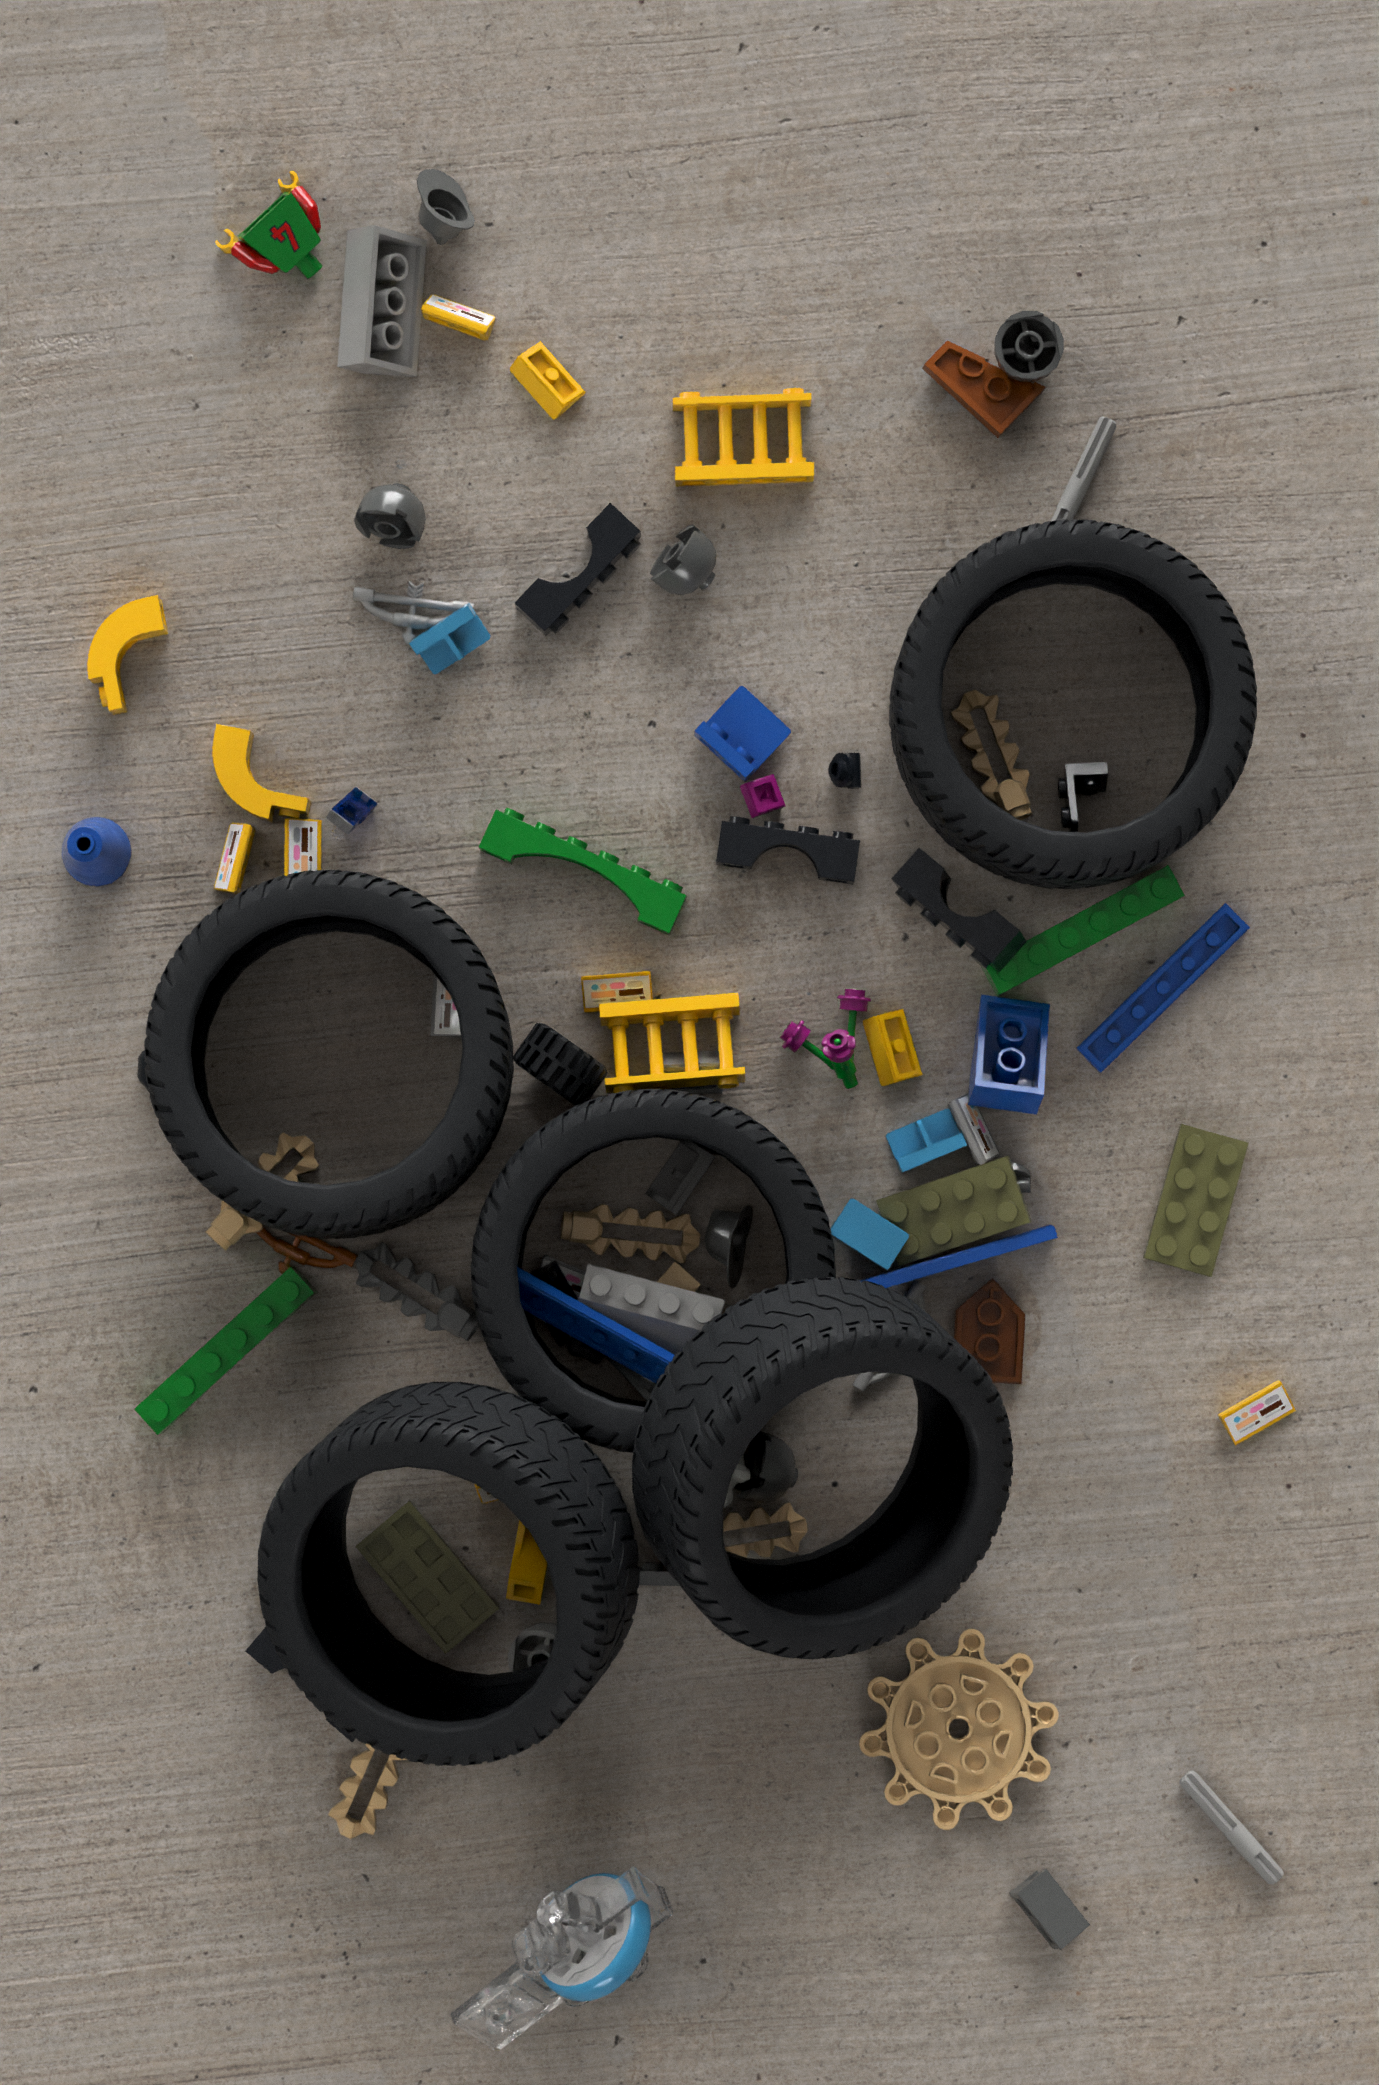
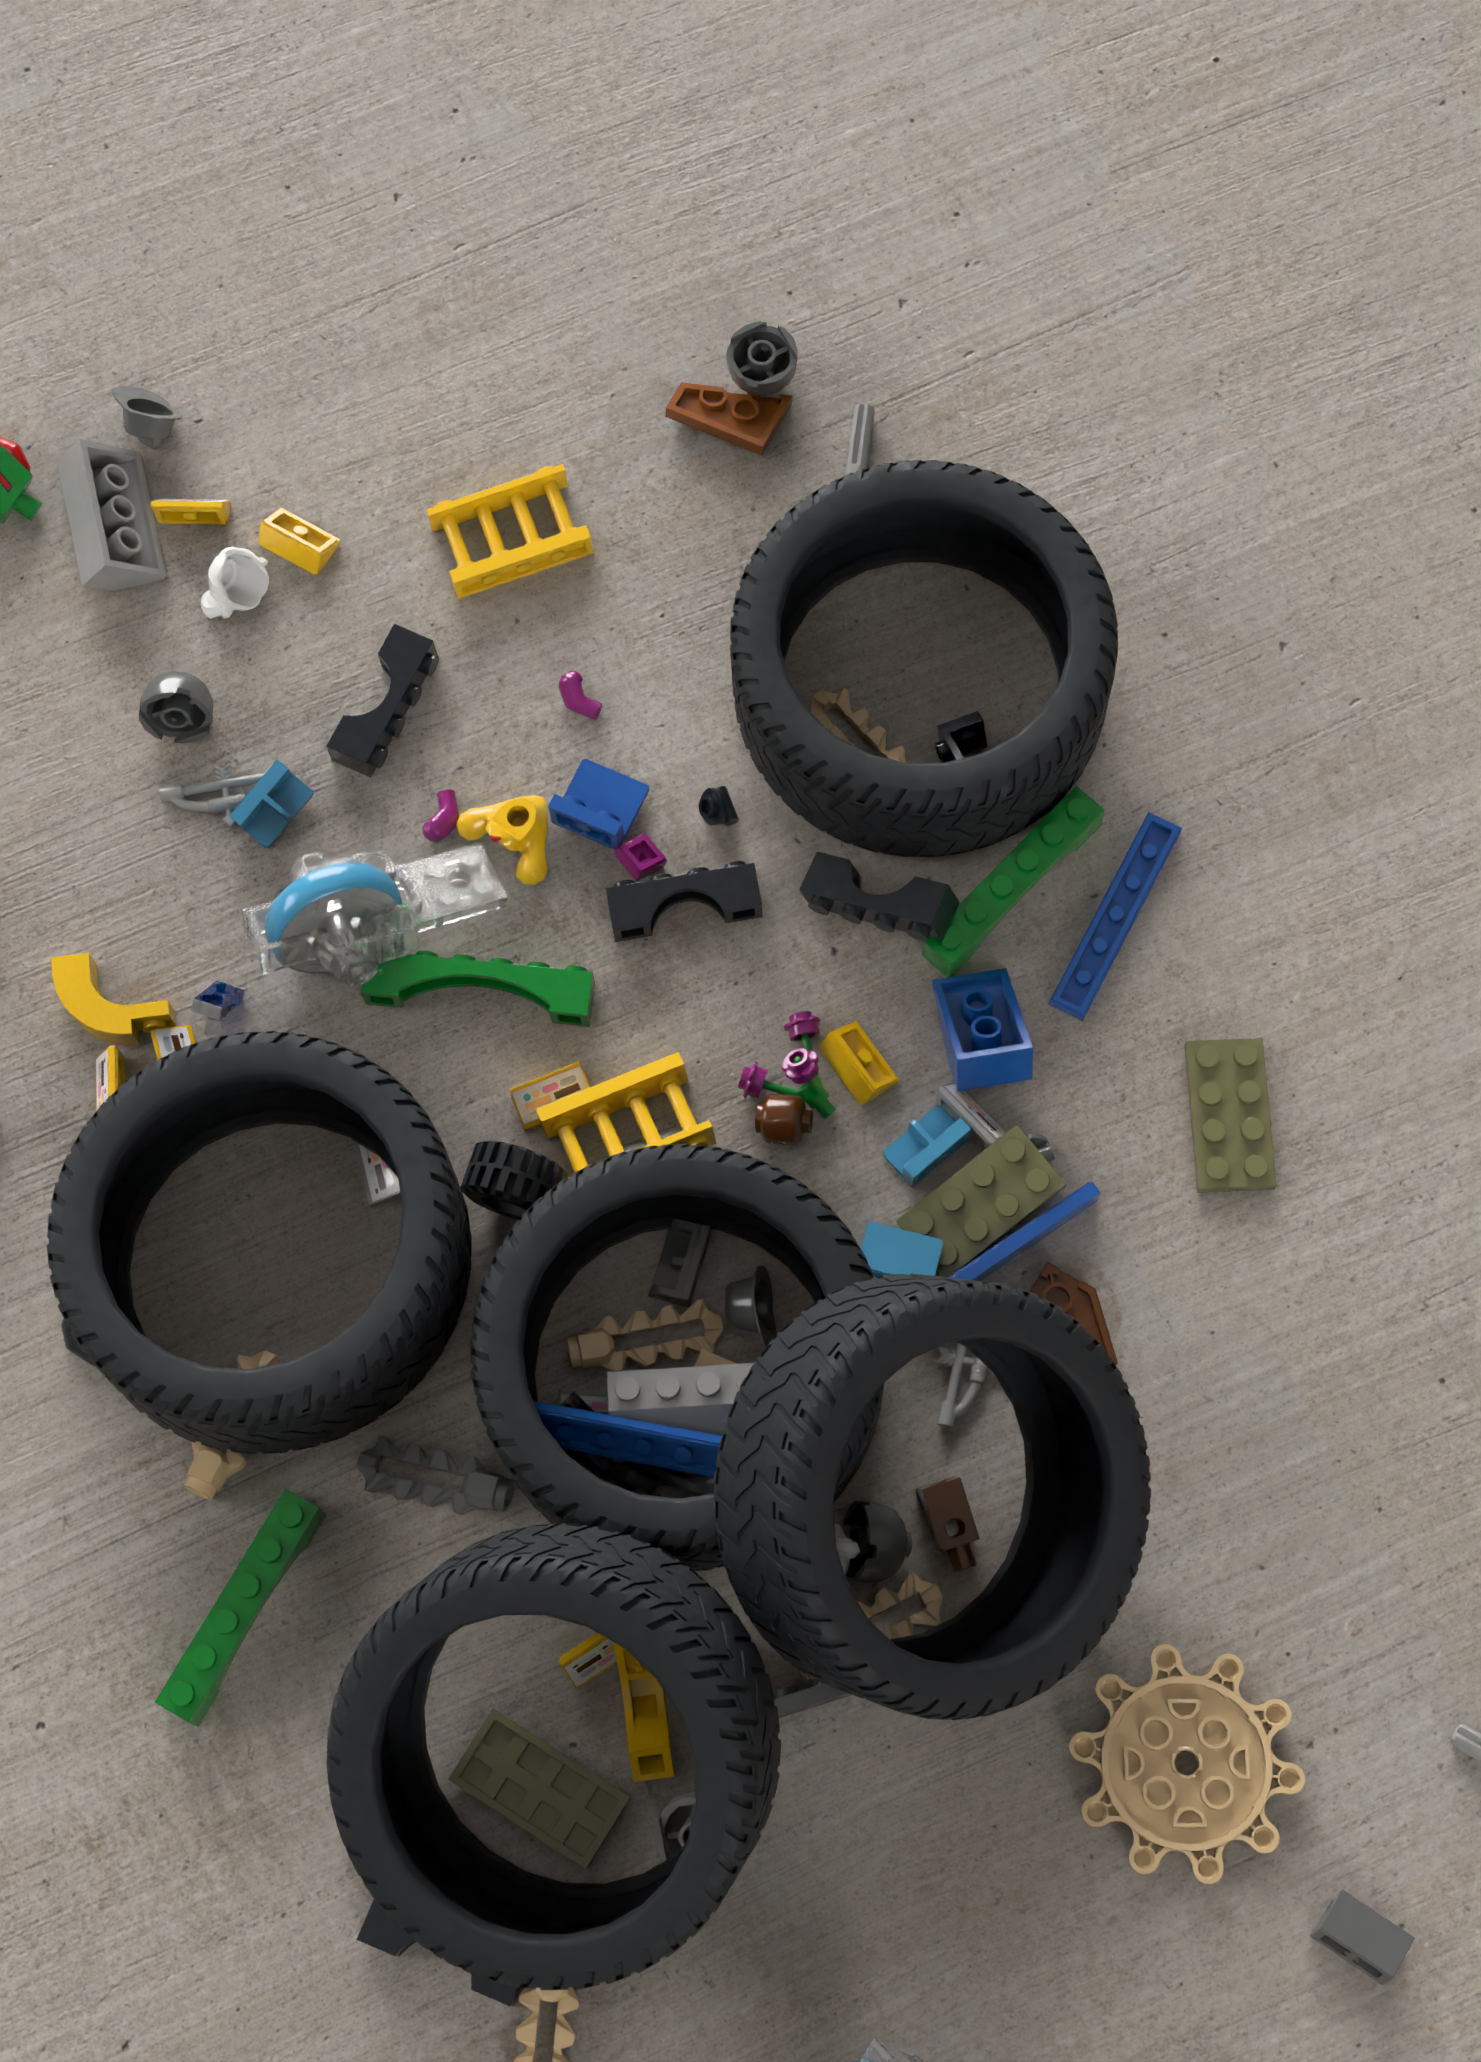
camera: 15 degrees left, 15 degrees down
(292, 1252) = (288, 1480): dark orange piece -> none
(477, 408) = (235, 583): none -> white hair
(496, 770) = (367, 887): none -> clear piece
(600, 702) = (445, 820): none -> magenta arm
(660, 732) = (518, 826): none -> yellow head
(686, 564) = (490, 659): dark grey cylinder -> none
(751, 621) = (573, 696): none -> magenta arm
(809, 1080) = (783, 1119): none -> reddish brown head
(834, 1459) = (941, 1503): none -> reddish brown torso
(1256, 1412) = (1378, 1311): slope -> none

